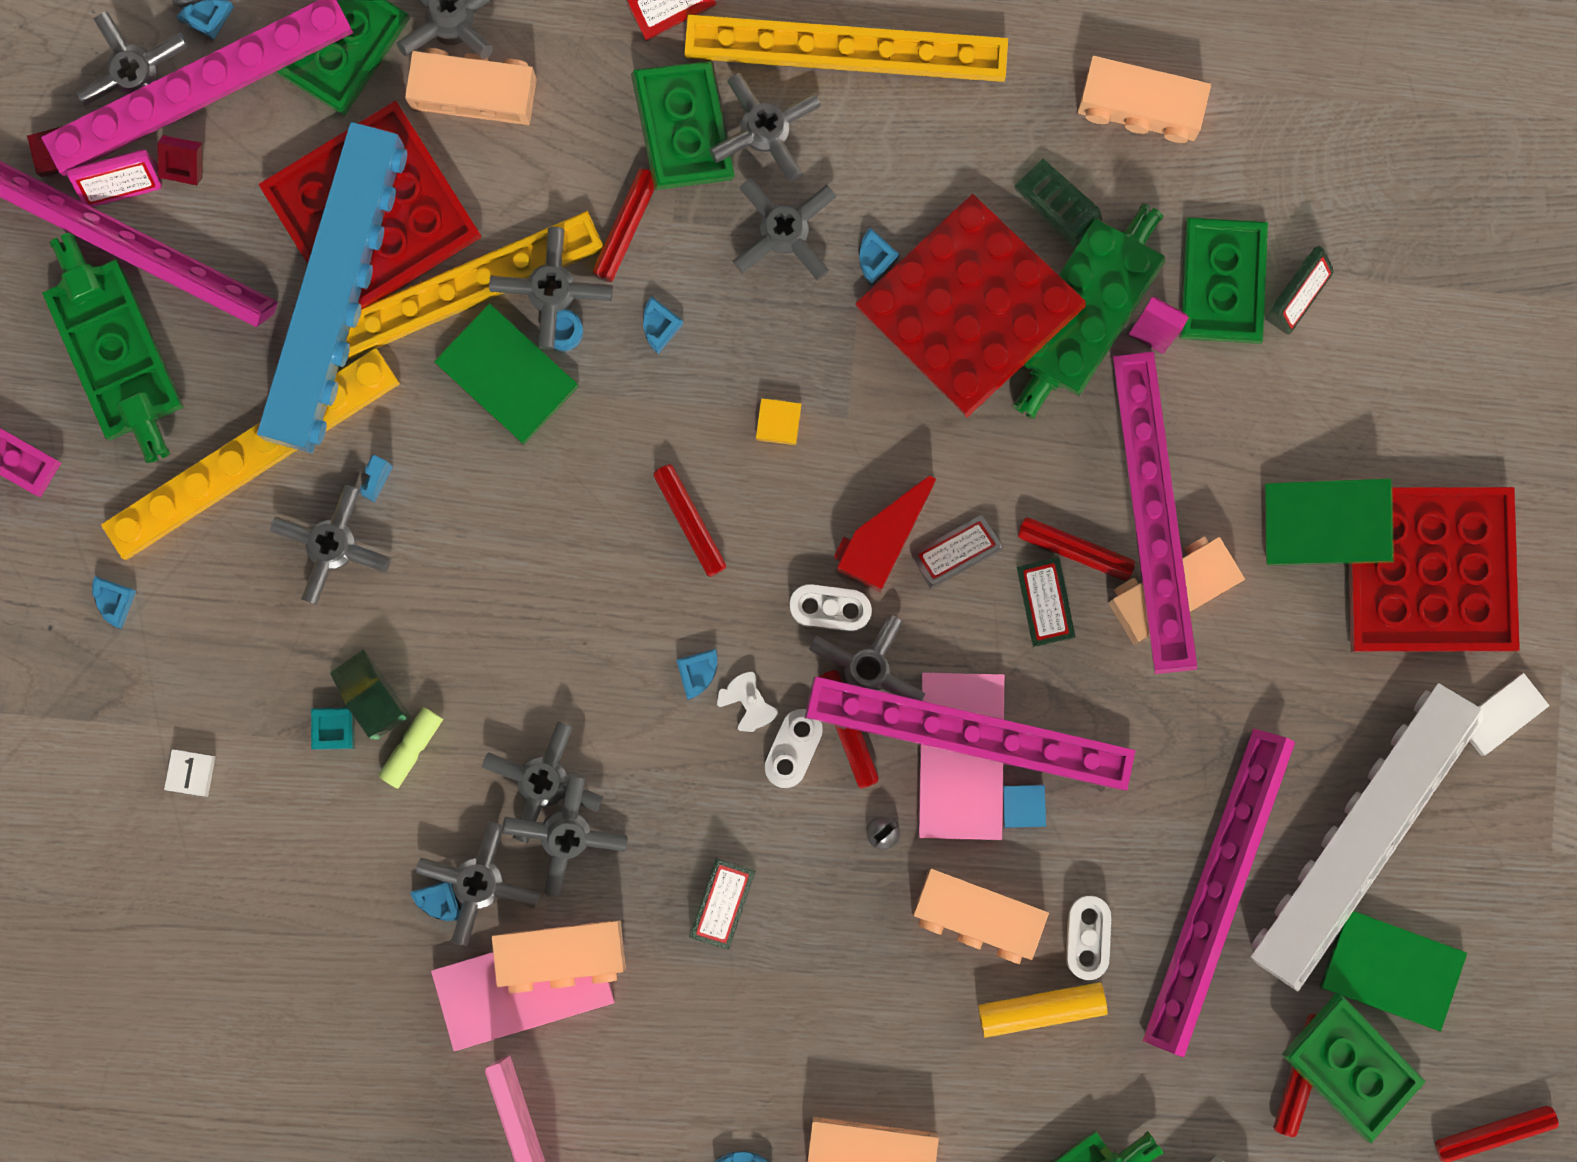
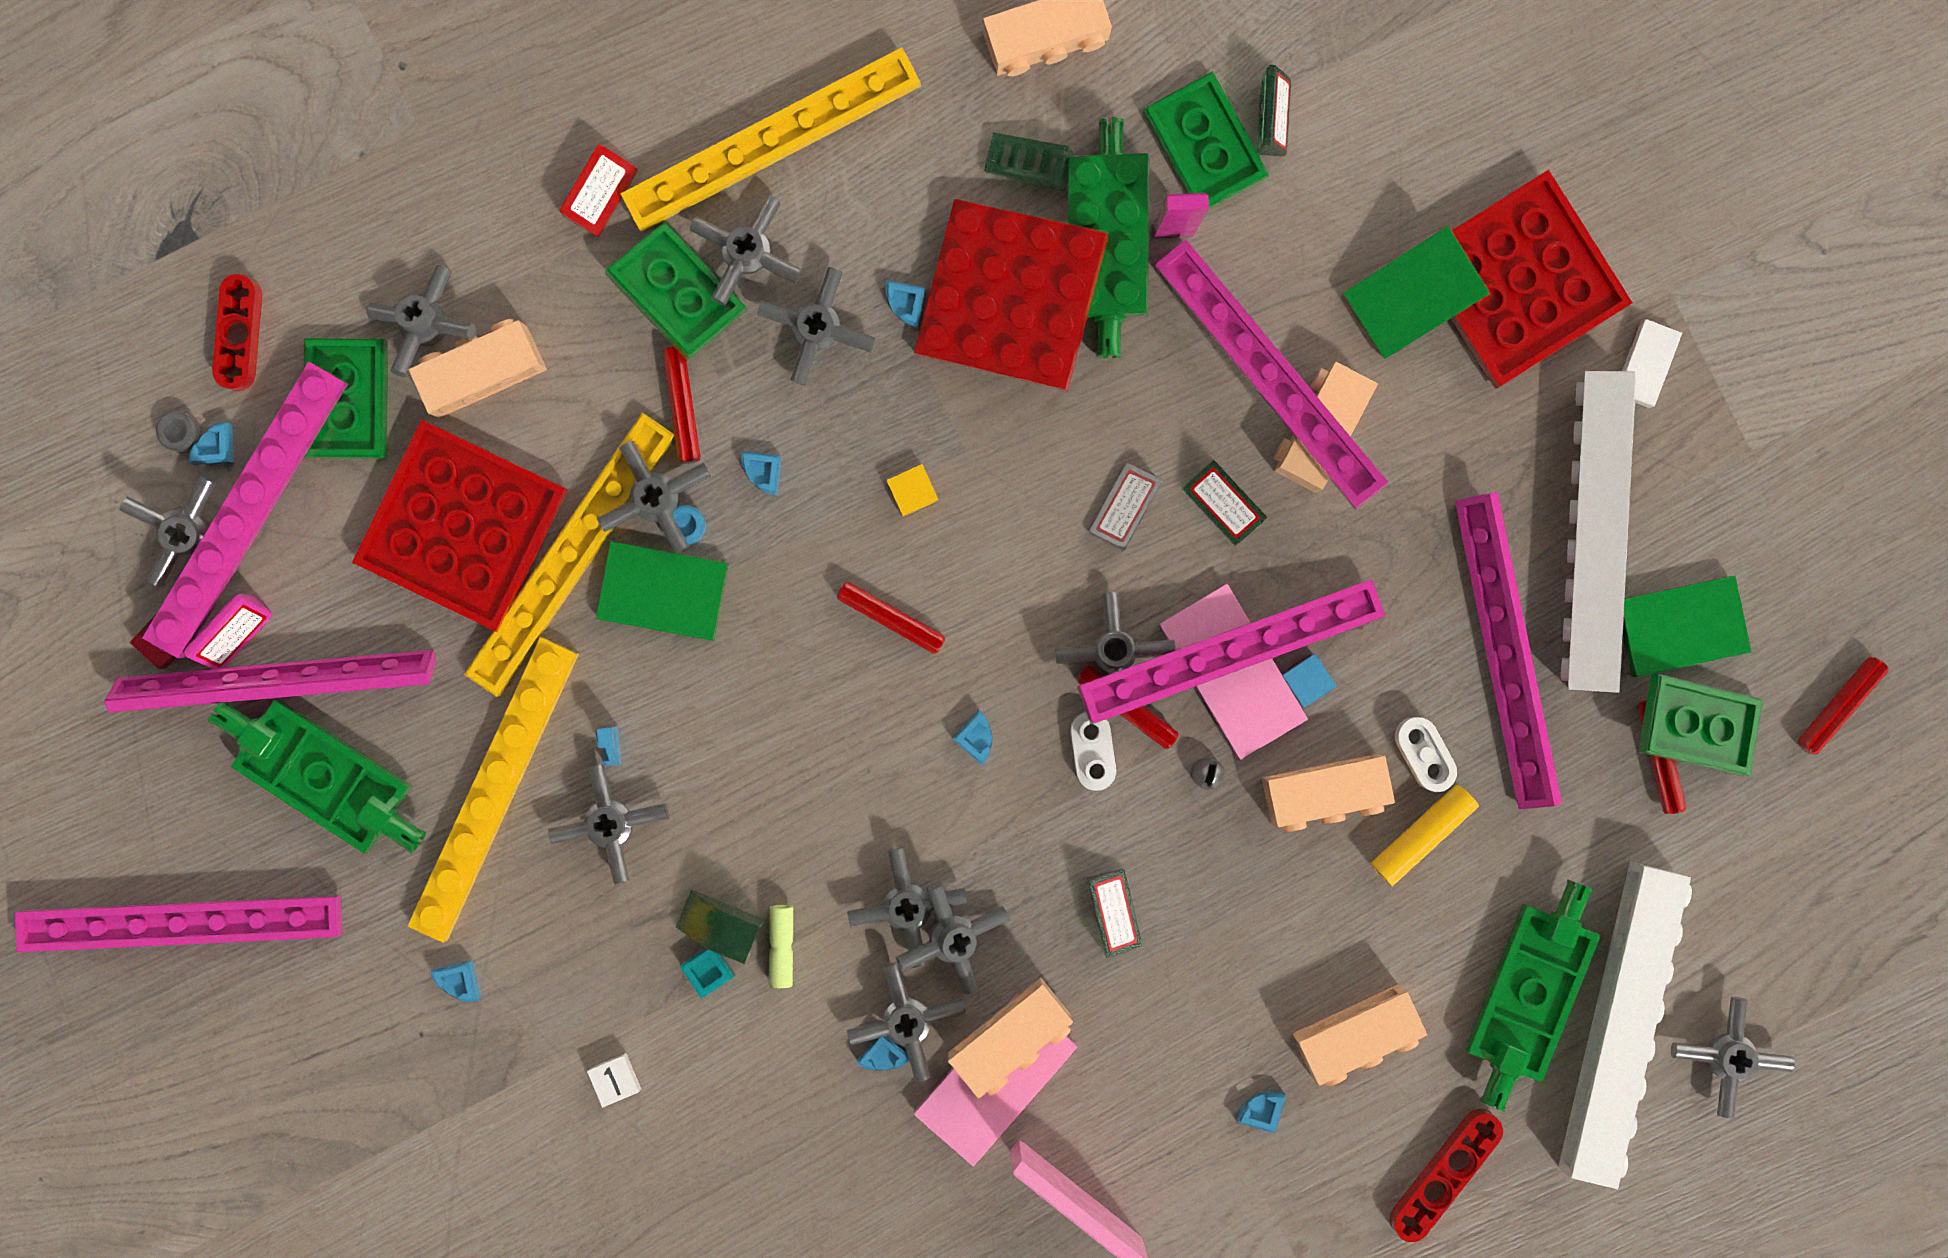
camera: 40 degrees left, 5 degrees up
(179, 160) = (272, 583): dark red plate -> none
(332, 288) = (471, 611): dark azure brick -> none
(744, 689) = (1023, 728): white piece -> none
(830, 608) = (1051, 617): white plate -> none
(879, 541) = (1059, 540): red slope -> none
(1076, 549) = (1221, 443): red axle -> none

